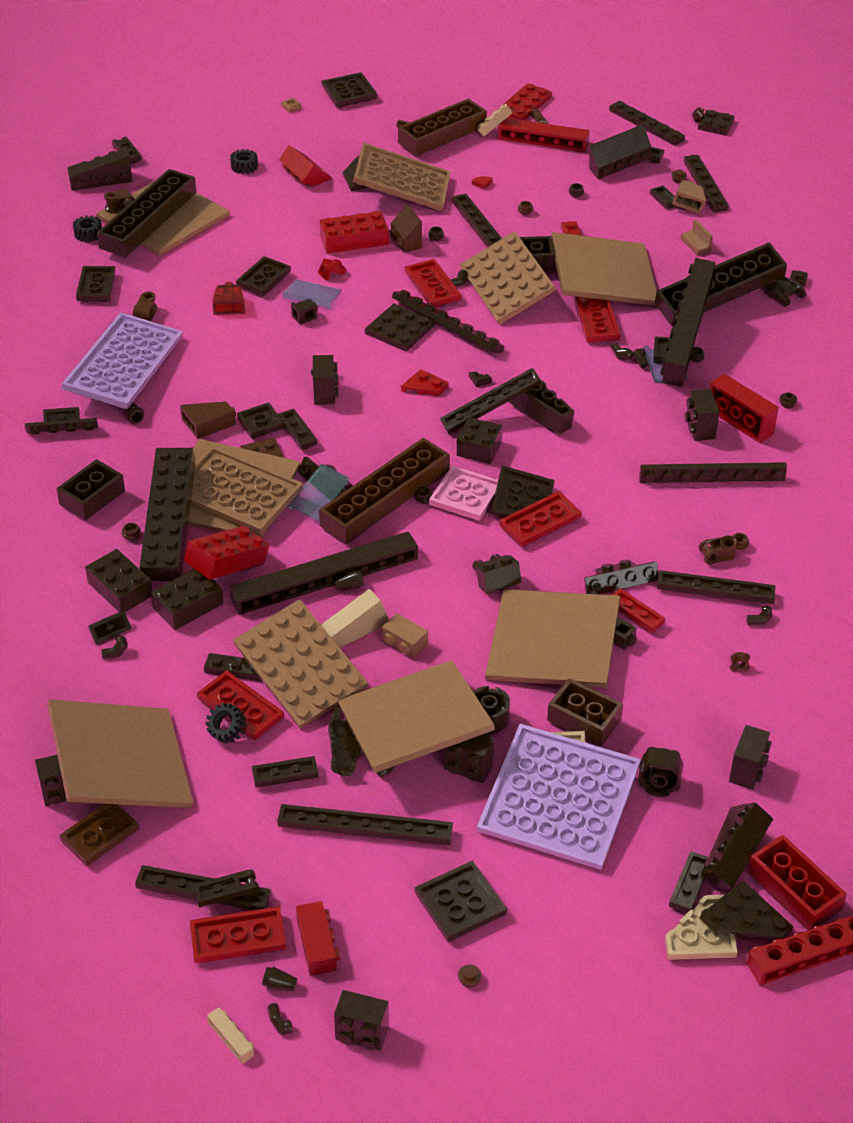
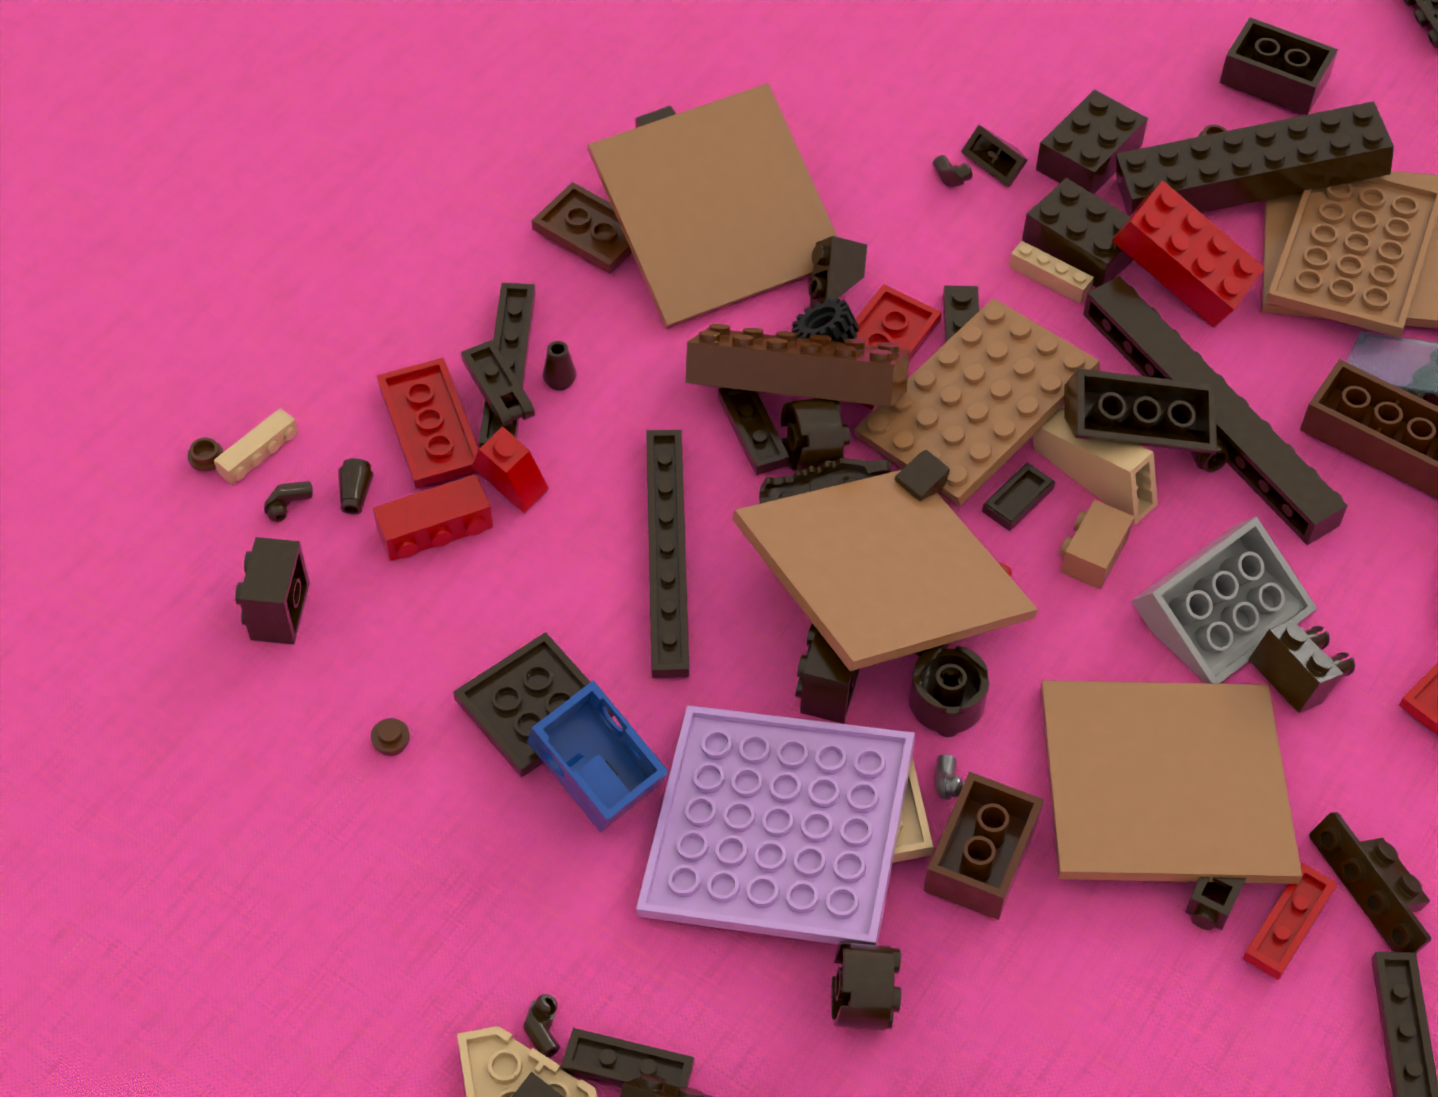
camera: 80 degrees right, 10 degrees up
(183, 712) = (836, 268): none -> dark brown slope
(207, 619) = (1051, 272): none -> tan piece
(214, 860) = (558, 367): none -> cone
(229, 1066) = (203, 452): none -> reddish brown plate
(262, 733) = (798, 365): none -> reddish brown brick
(290, 891) = (511, 469): none -> red slope
(305, 737) = (813, 432): none -> dark brown brick
(341, 590) = (1141, 410): none -> dark brown slope
(351, 692) = (923, 475): none -> dark brown slope
(364, 664) = (1018, 496): none -> dark brown tile
(450, 594) = (1224, 601): none -> light grey slope
(516, 865) = (594, 758): none -> blue piece
(543, 724) = (945, 780): none -> flat silver arm
(662, 921) = (538, 1024): none -> dark brown arm

